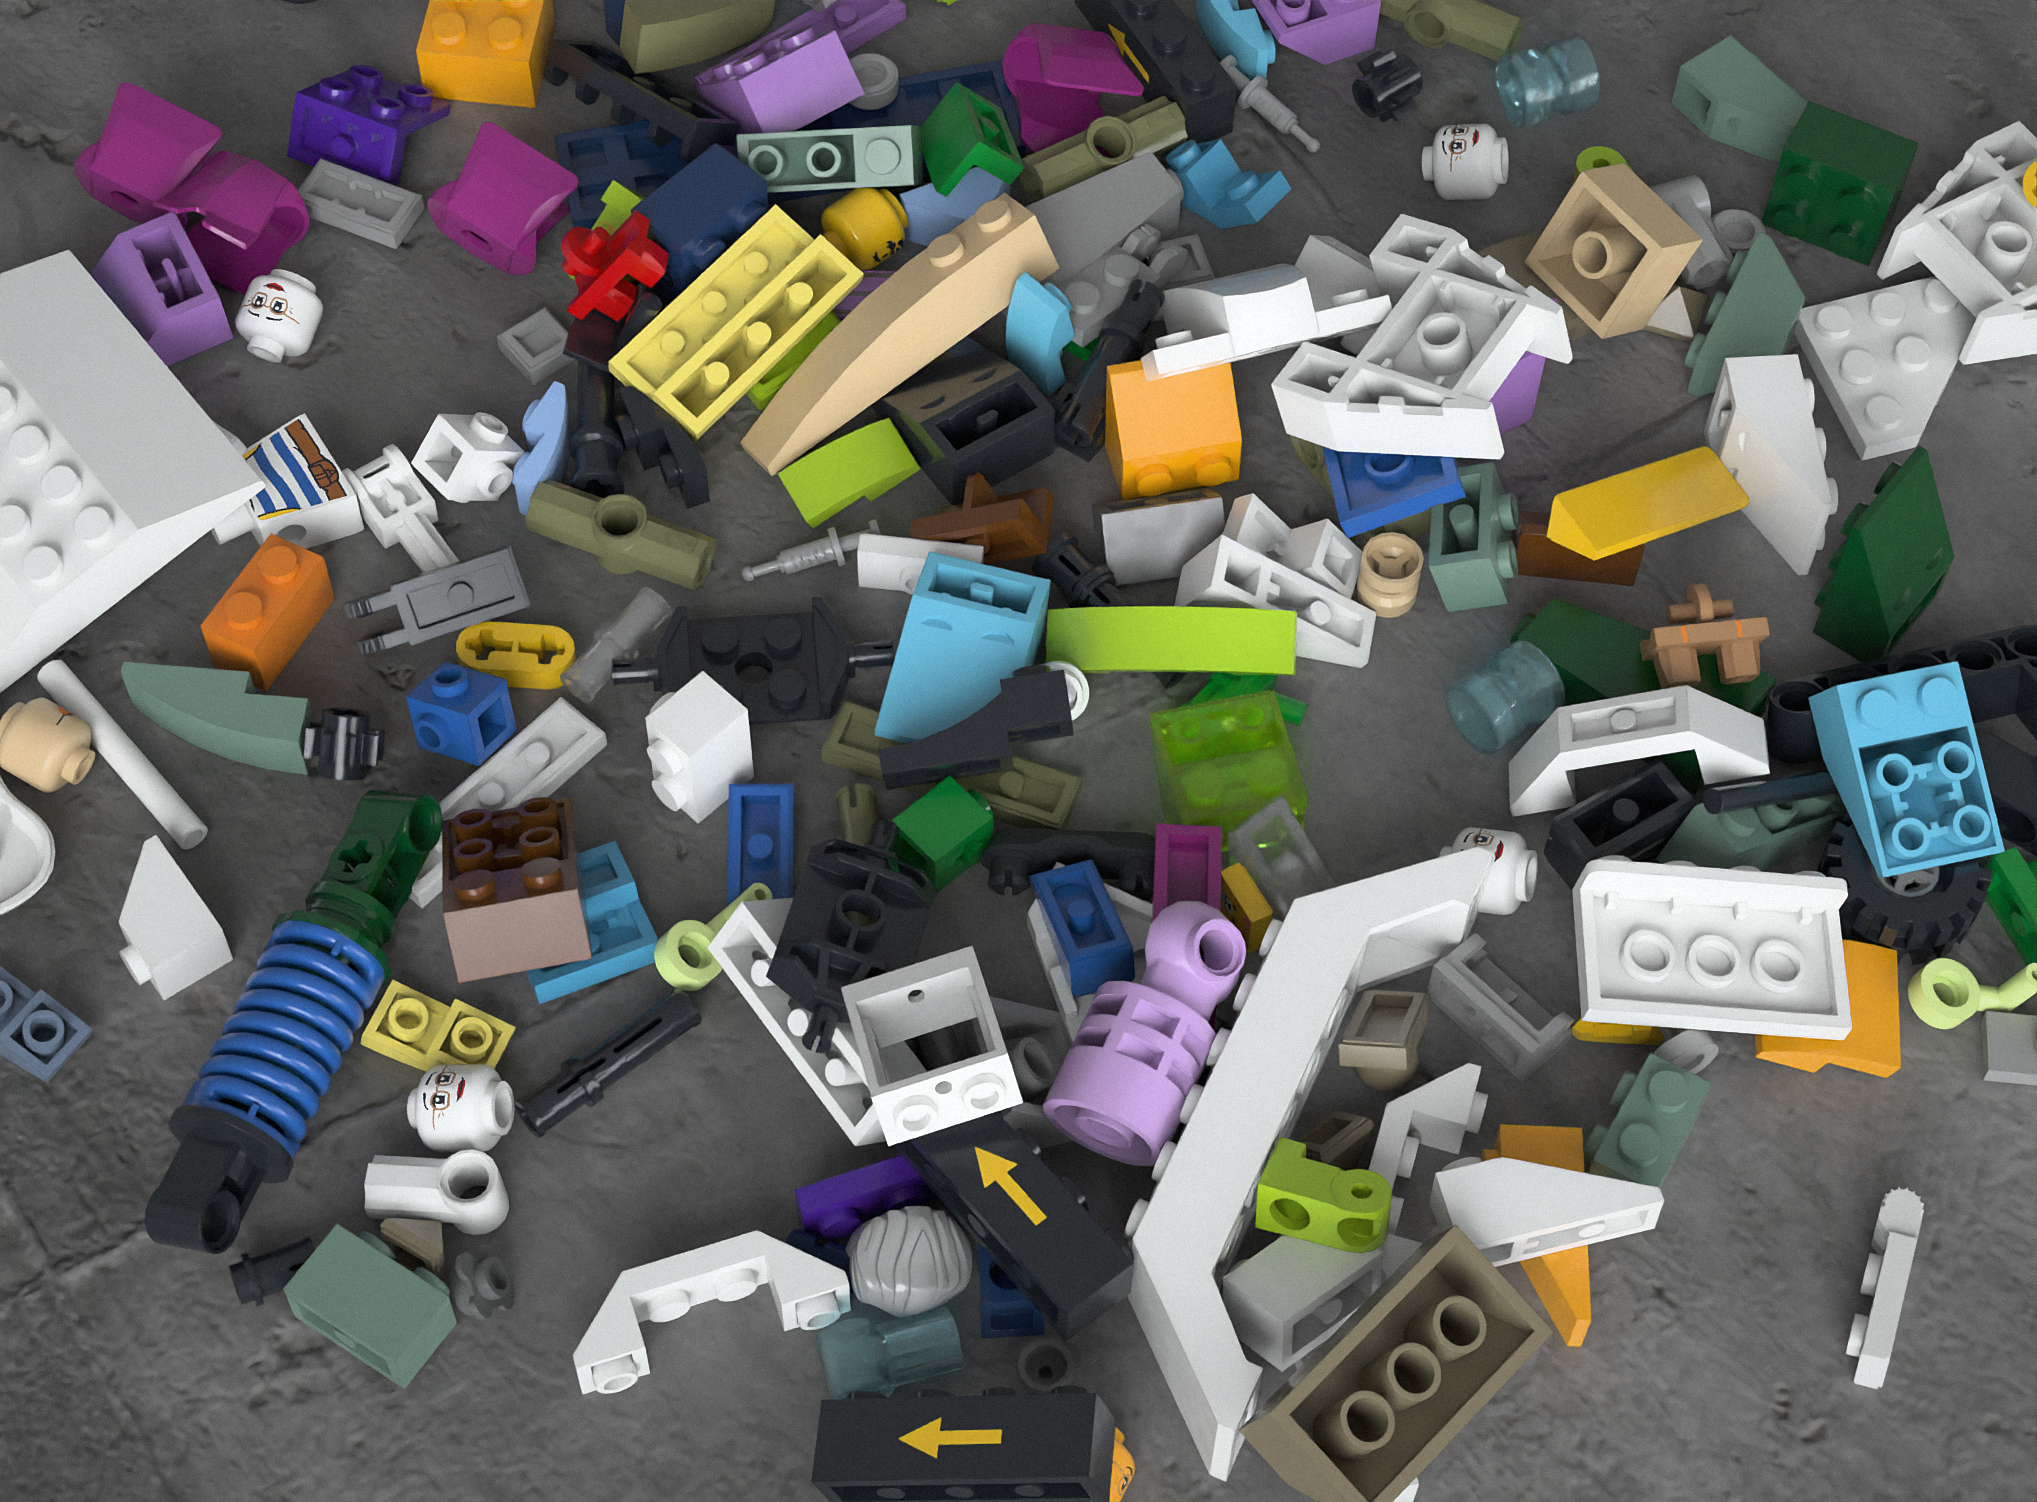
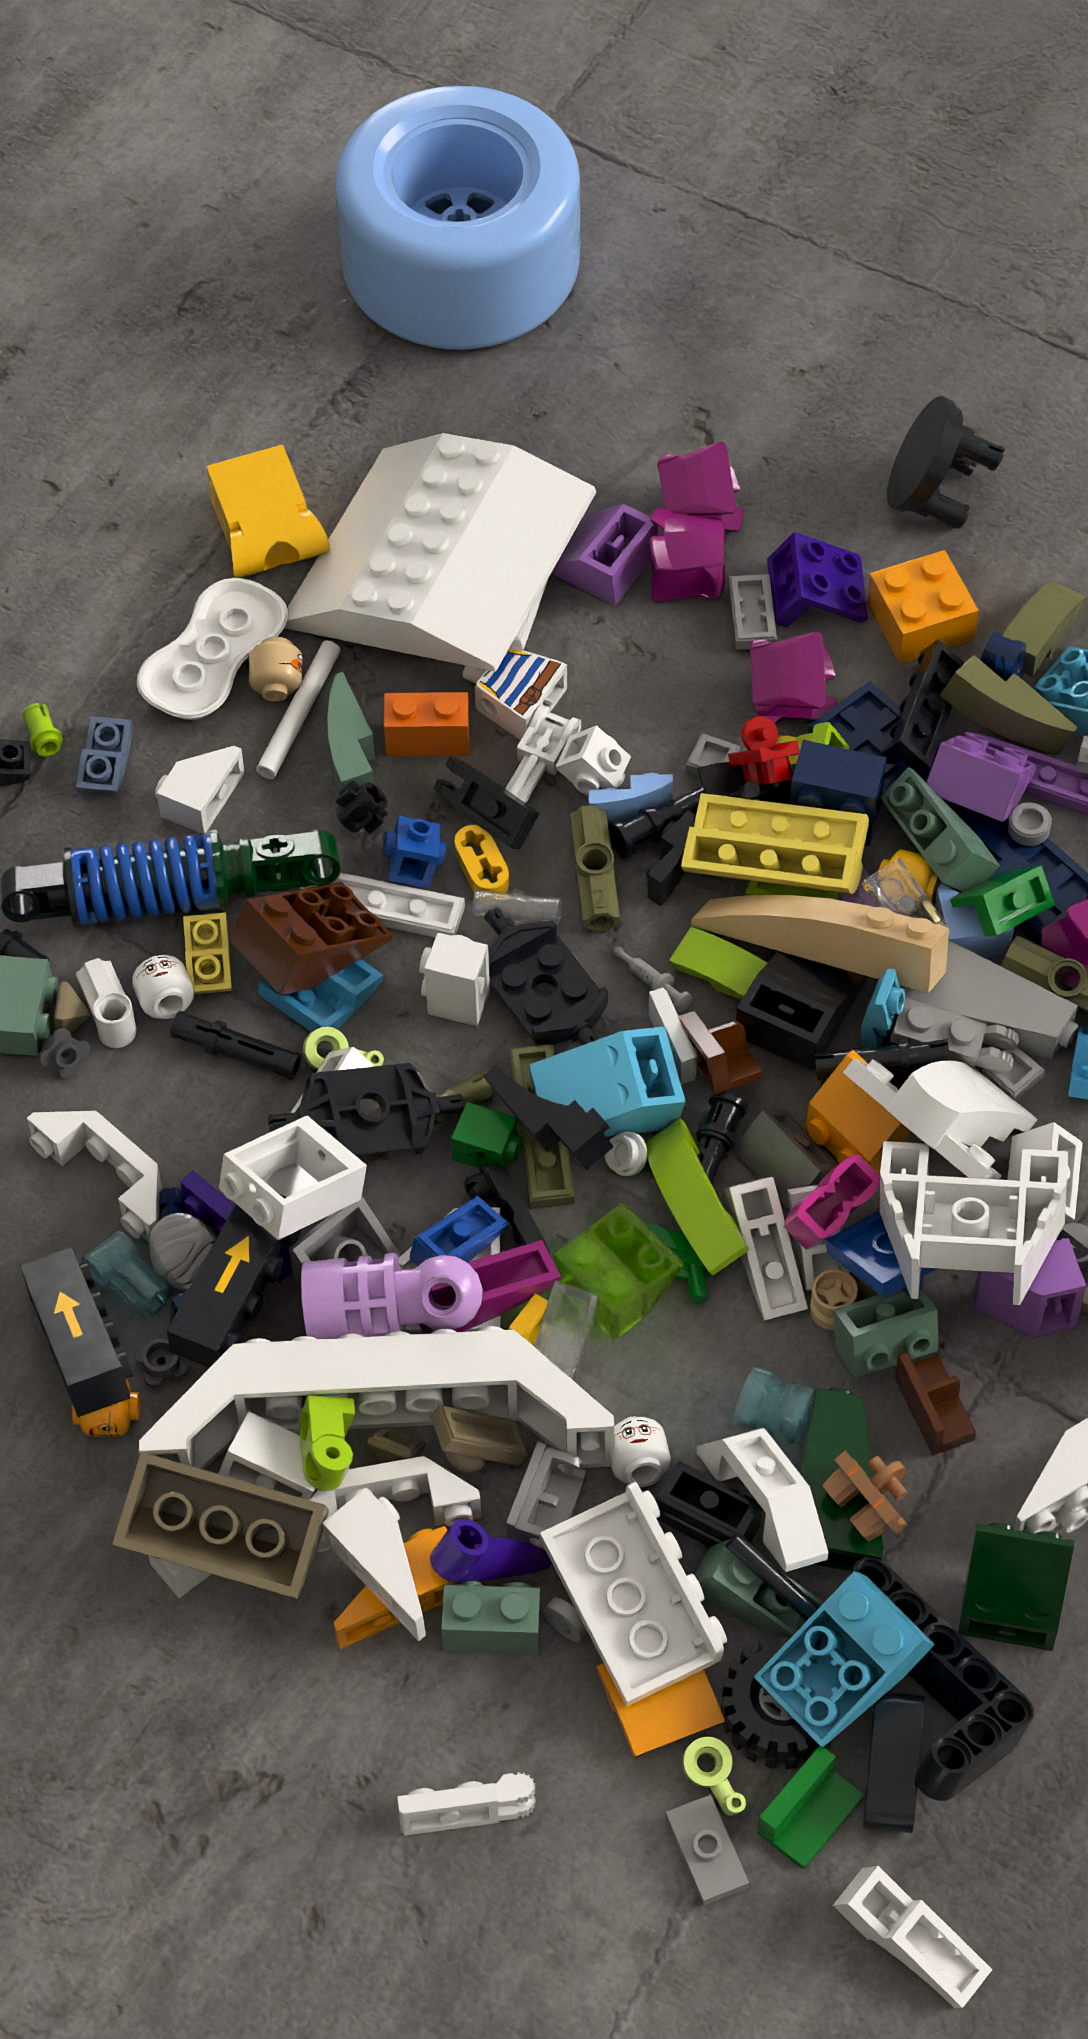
camera: 65 degrees right, 0 degrees up
(279, 315) = (638, 617): white head -> none
(761, 838) = (431, 1046): blue slope -> none
(899, 231) = (899, 891): none -> clear slope
(1294, 491) = (832, 1201): none -> dark pink brick
(1568, 1104) = (472, 1555): none -> dark purple piece
(1644, 504) = (969, 1418): yellow slope -> none

